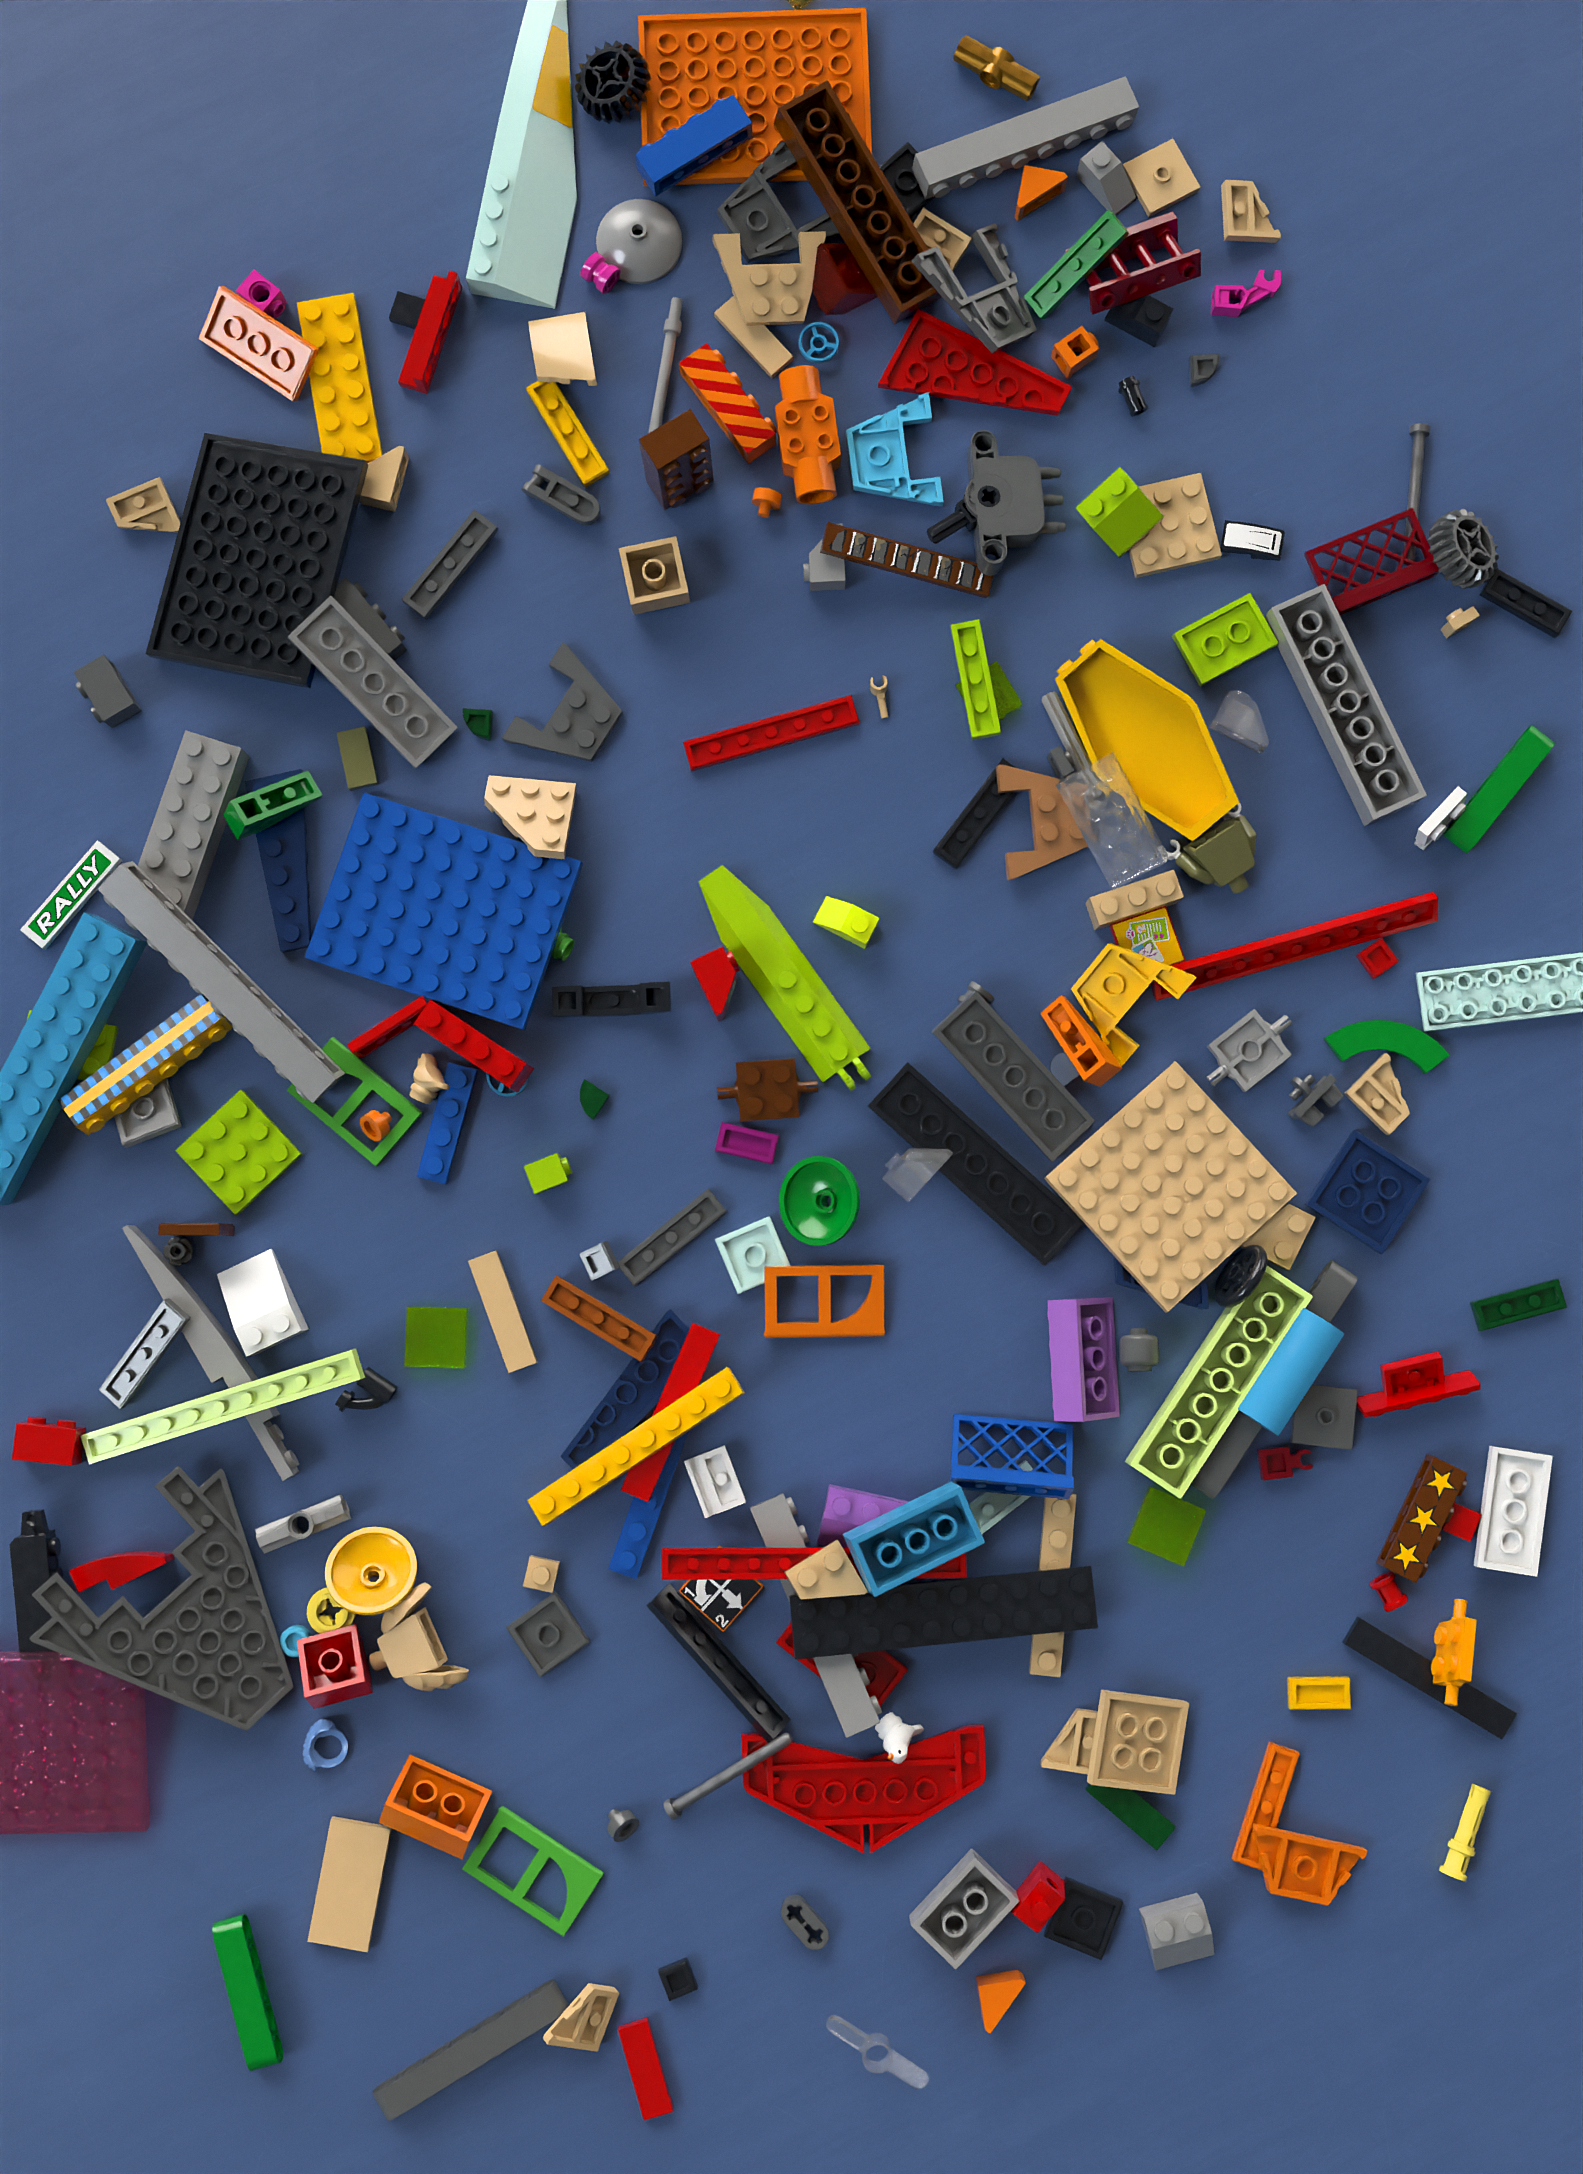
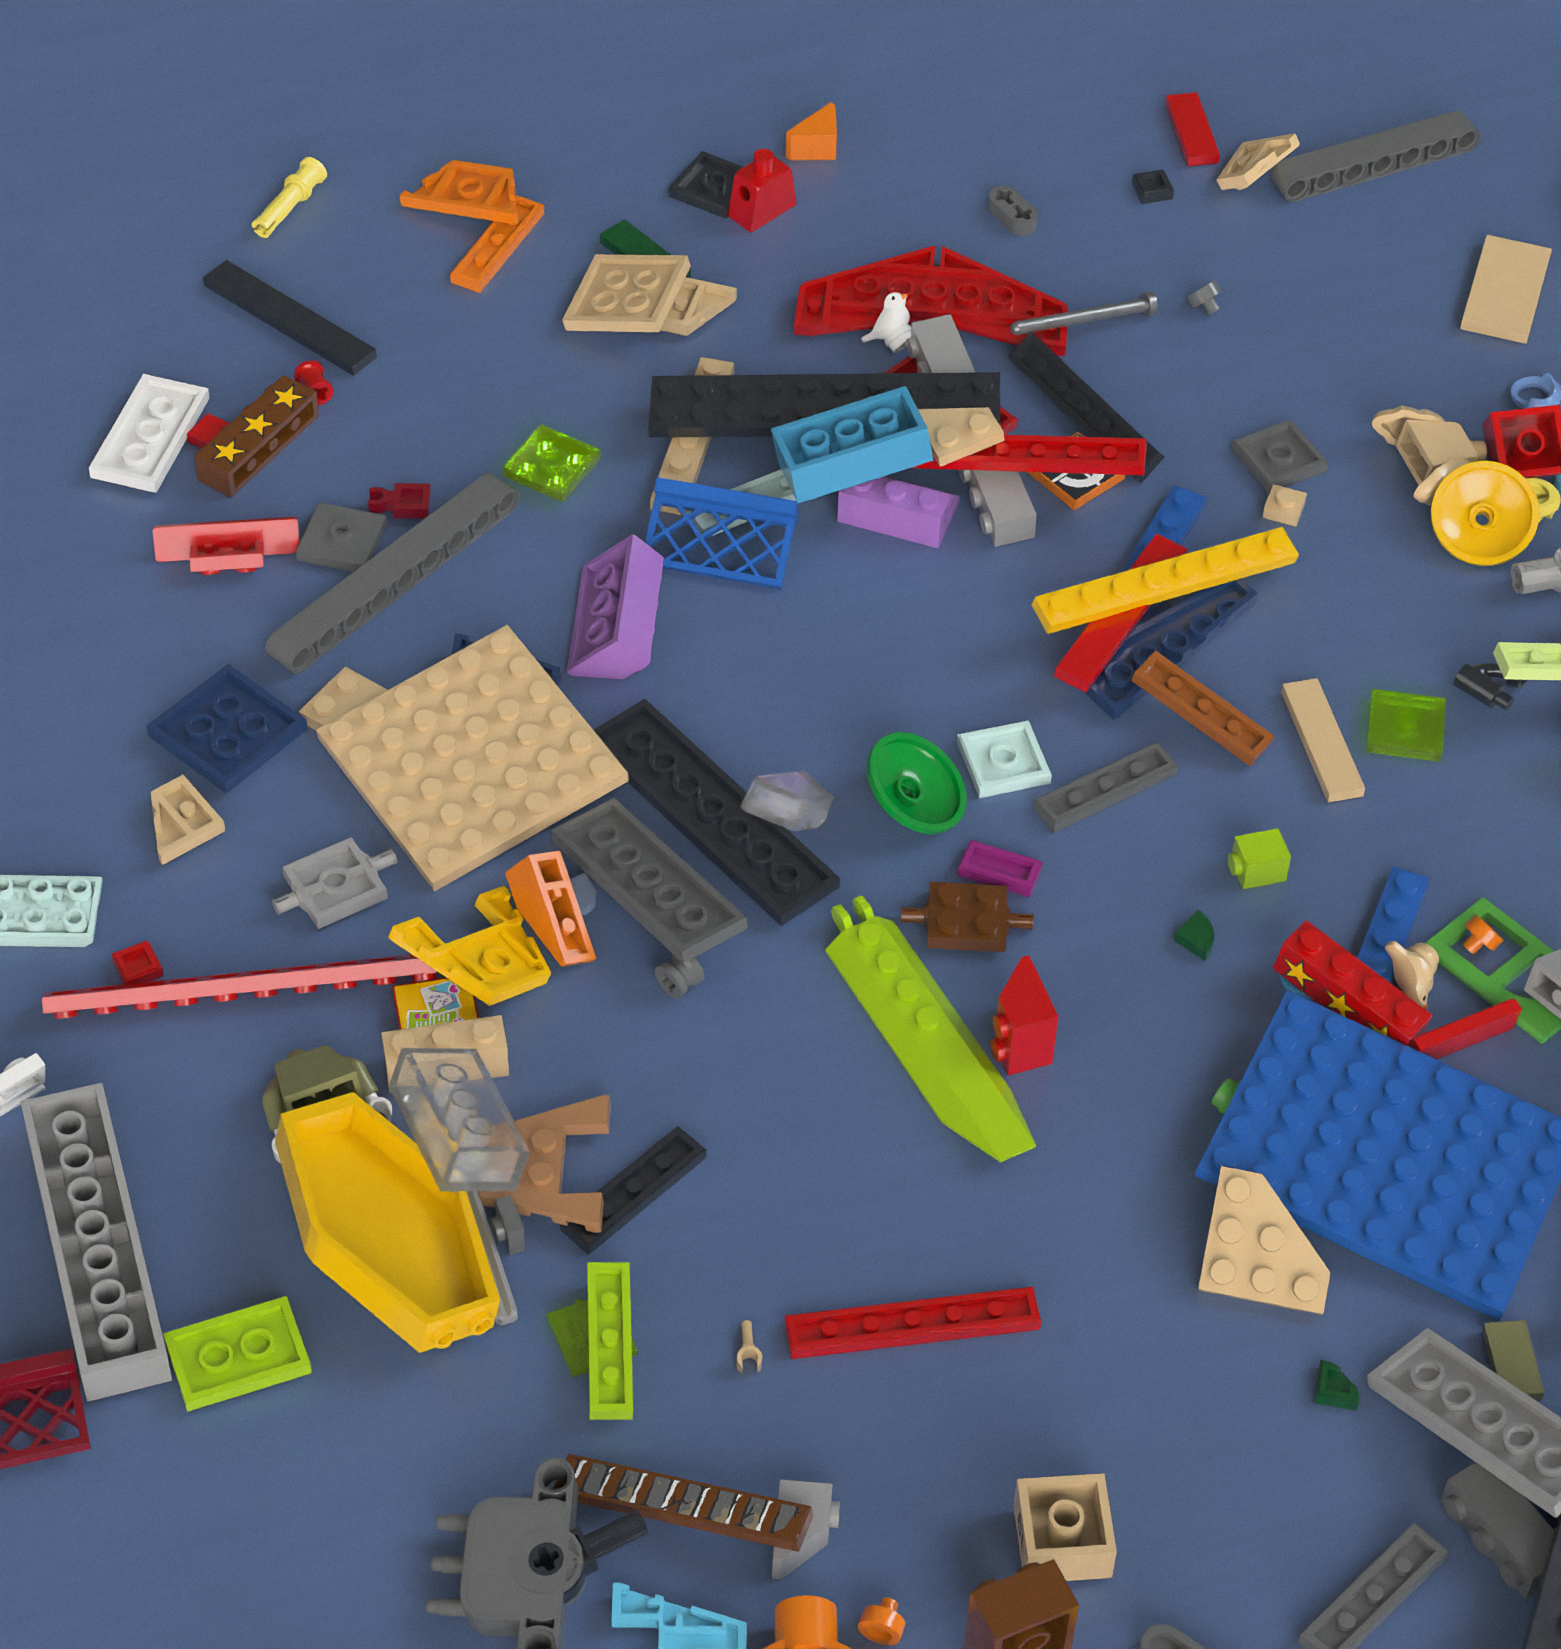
camera: 175 degrees left, 35 degrees down
(435, 1806) = (1410, 330): orange slope -> none
(579, 721) = (1190, 1368): dark grey wing -> none
(579, 1874) = (1254, 269): bright green window -> none
(599, 1260) = (1198, 770): tile -> none
(611, 1000) = (1164, 1036): black slope -> none
(715, 1481) = (1073, 555): white plate -> none
(846, 921) = (836, 1077): neon yellow slope -> none
(864, 1322) = (873, 682): orange window -> none
(893, 2062) = (946, 111): clear piece -> none
(963, 1908) = (841, 192): light grey brick -> none
(1119, 512) = (353, 1526): lime slope -> none
(1139, 1350) = (547, 609): dark grey head -> none
(1177, 1931) = (618, 164): light grey slope -> none
(1184, 534) = (279, 1521): tan plate -> none
(1216, 1383) = (458, 571): yellowish green brick -> none
(1240, 1276) = (408, 648): black plate -> none
(1241, 721) = (247, 1247): clear slope -> none
(1252, 539) = (160, 1476): slope -> none
(1291, 1371) = (375, 549): dark azure brick -> none
(1318, 1693) = (414, 319): yellow tile -> none
(1322, 1089) = (269, 826): dark grey hips -> none
(1387, 1036) = (154, 880): green tile -> none
(1454, 1652) = (259, 313): light orange plate -> none
(1518, 1304) = (77, 609): dark green tile -> none

